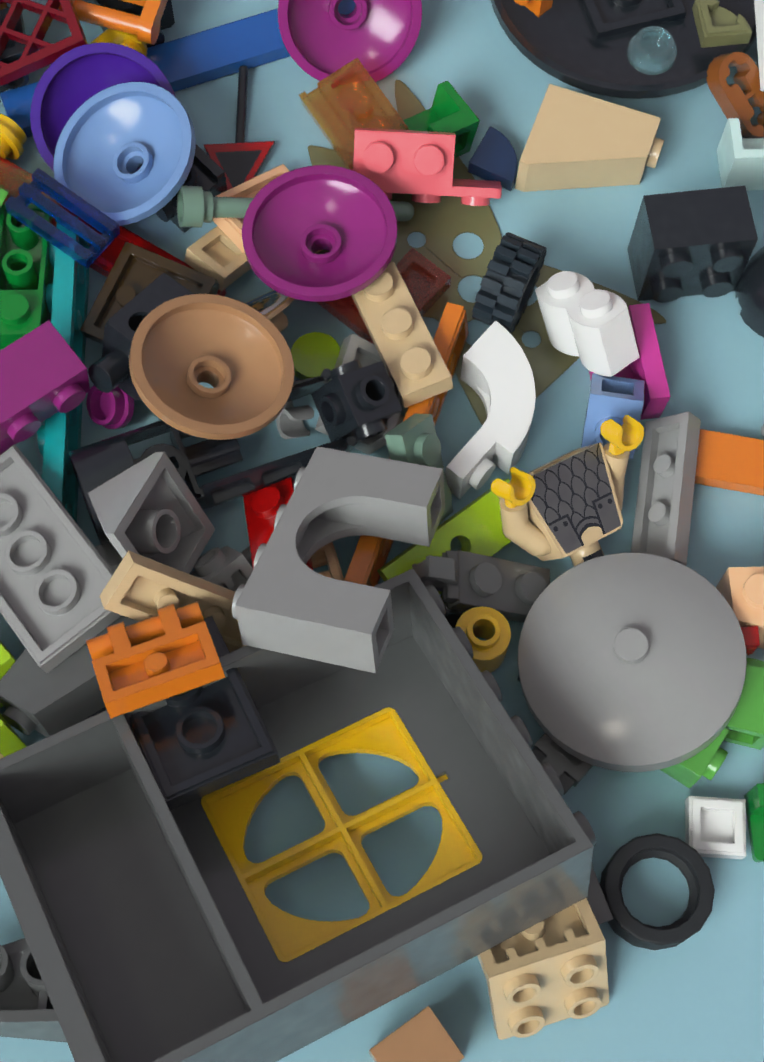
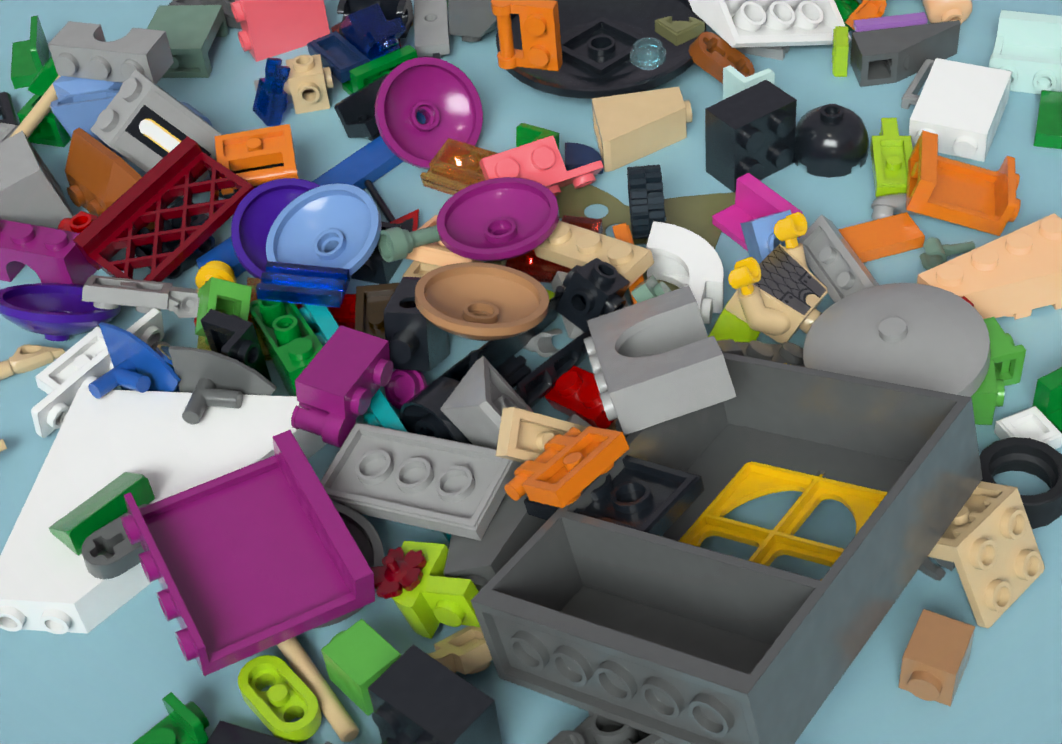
camera: 20 degrees left, 25 degrees down
(587, 323) = (716, 196): white brick -> none

